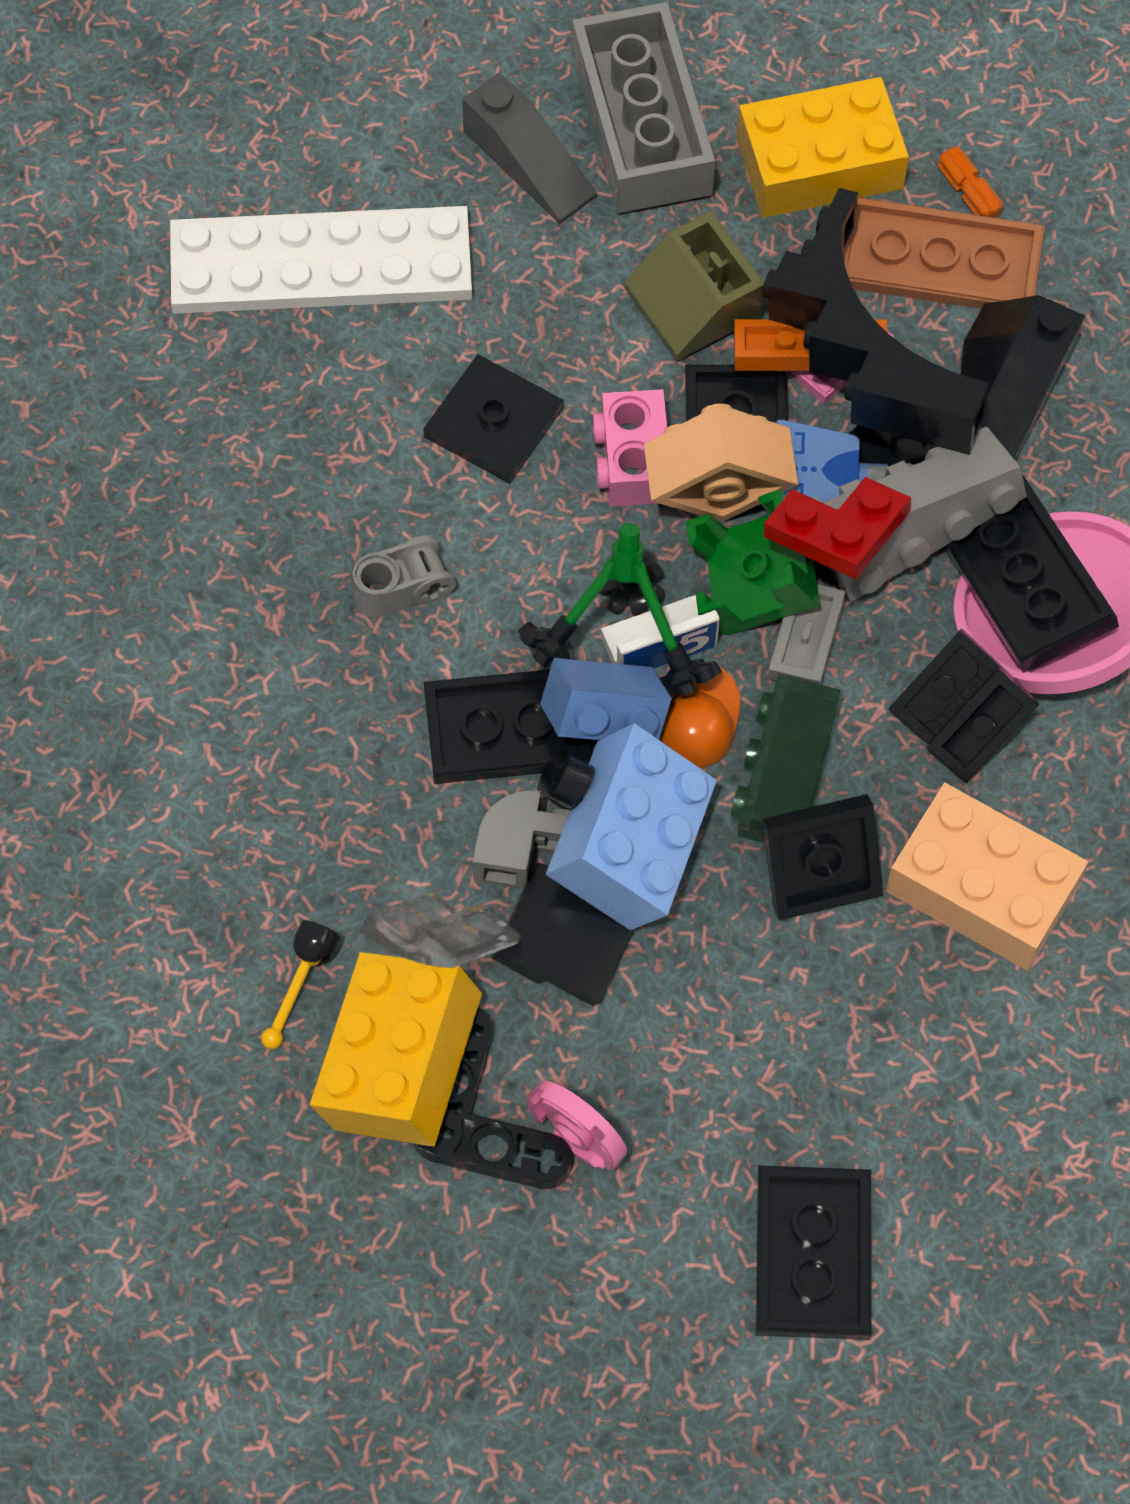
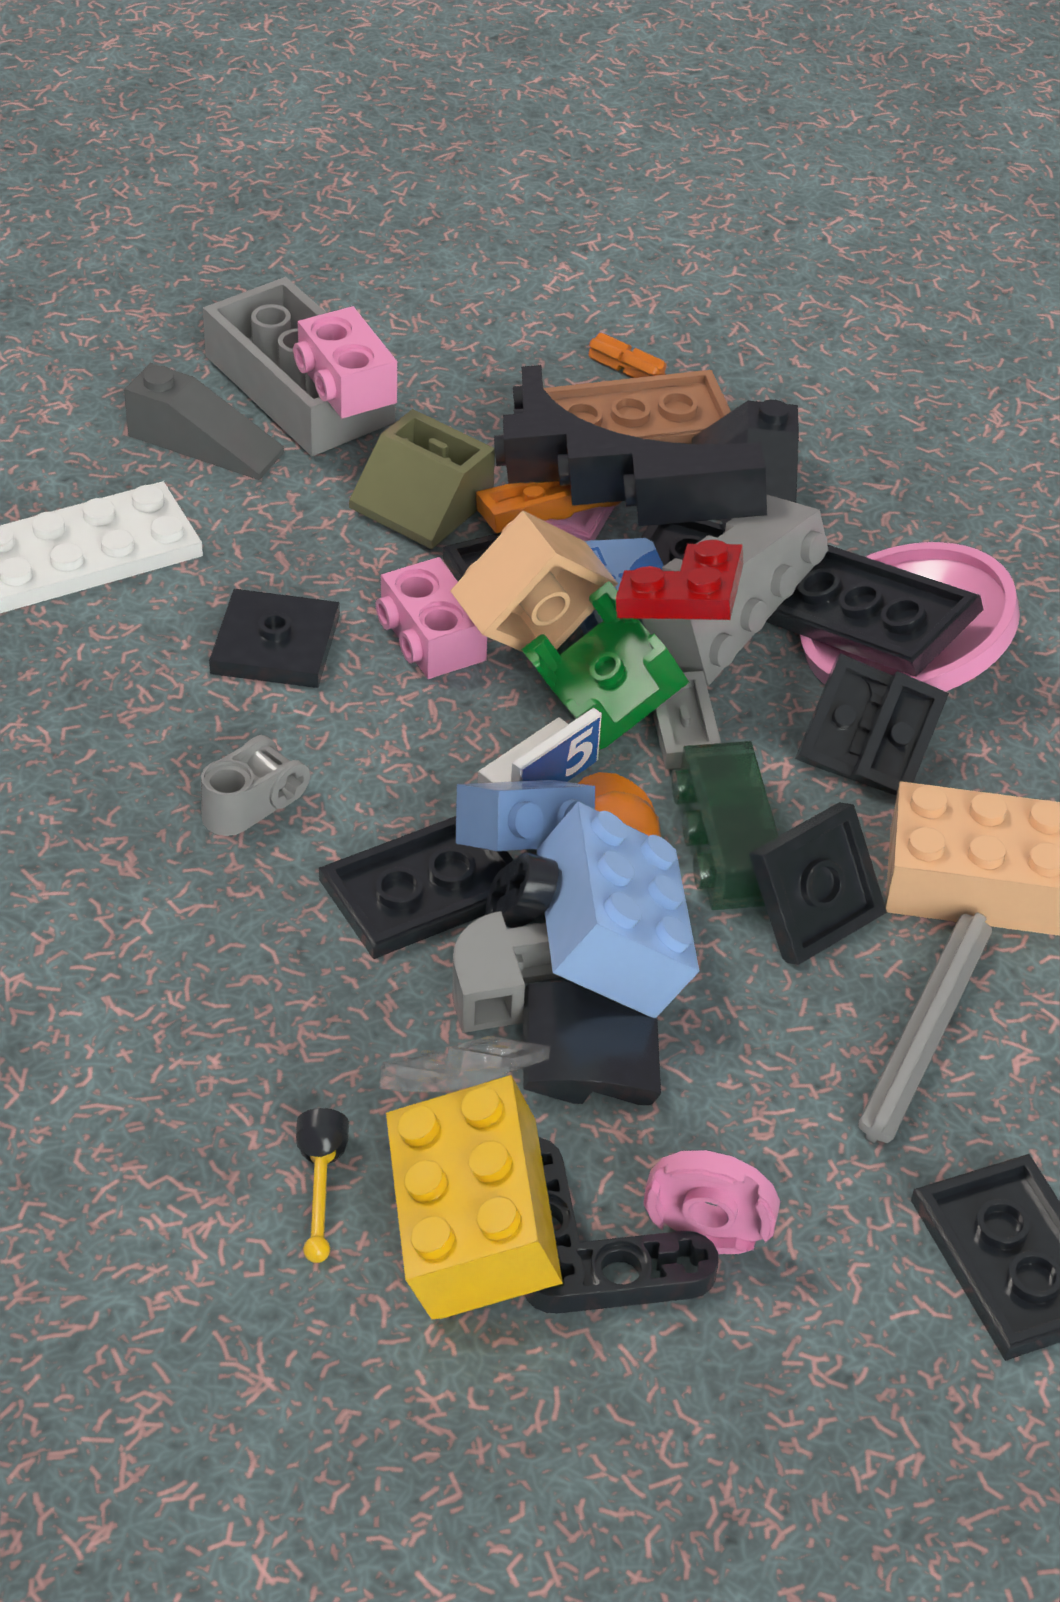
camera: 25 degrees left, 20 degrees down
(633, 586) = (492, 728): plant -> none
(666, 144) = (346, 362): none -> bright pink brick
(821, 141) = (474, 356): yellow brick -> none
(854, 1018) = (924, 1029): none -> light grey axle

